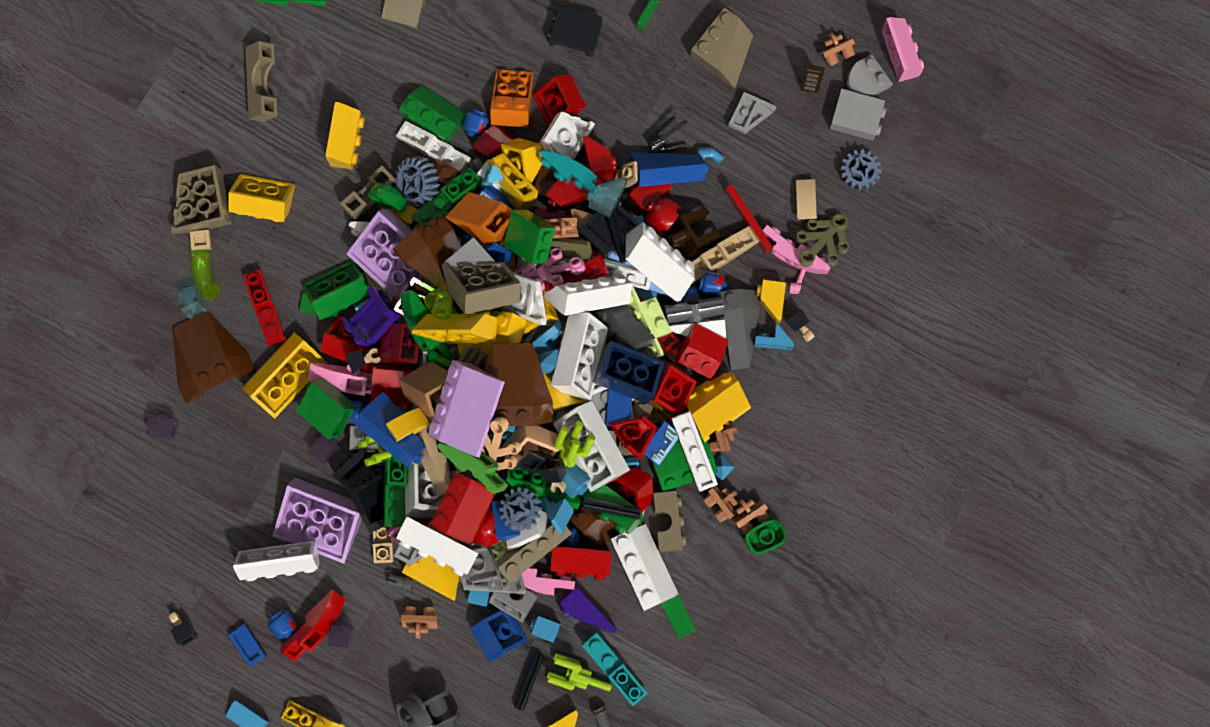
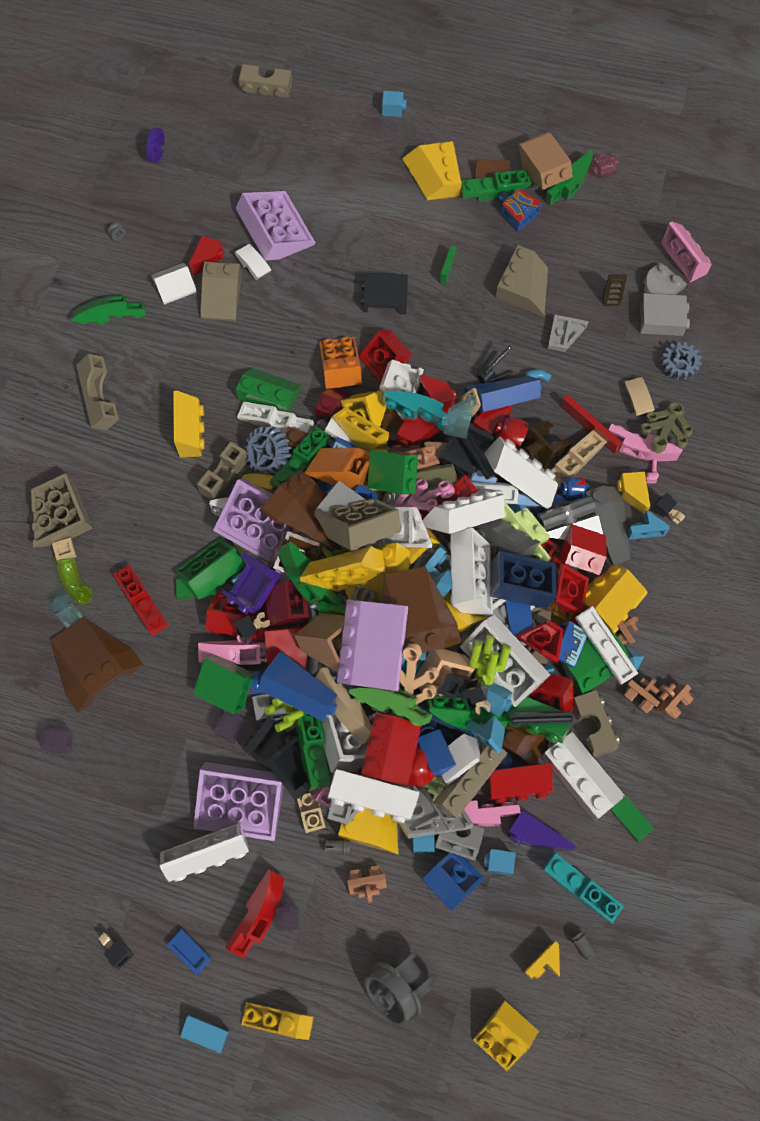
camera: 15 degrees left, 10 degrees down
(261, 198) = (117, 498): yellow slope -> none
(282, 375) = (172, 662): yellow slope -> none
(282, 624) = (223, 920): blue head -> none
(387, 197) = (242, 467): green piece -> none
(407, 423) = (314, 675): yellow slope -> none
(440, 303) = (320, 548): clear neon green cylinder -> none
(475, 123) = (311, 390): blue head -> none
(492, 176) = (341, 428): medium azure slope -> none
(514, 517) = (451, 729): sand blue gear -> none
(528, 682) = (496, 923): black axle -> none
(574, 675) = (543, 904): lime plant -> none
(765, 537) = (696, 717): green piece -> none
(830, 54) = (623, 257): nougat hips -> none

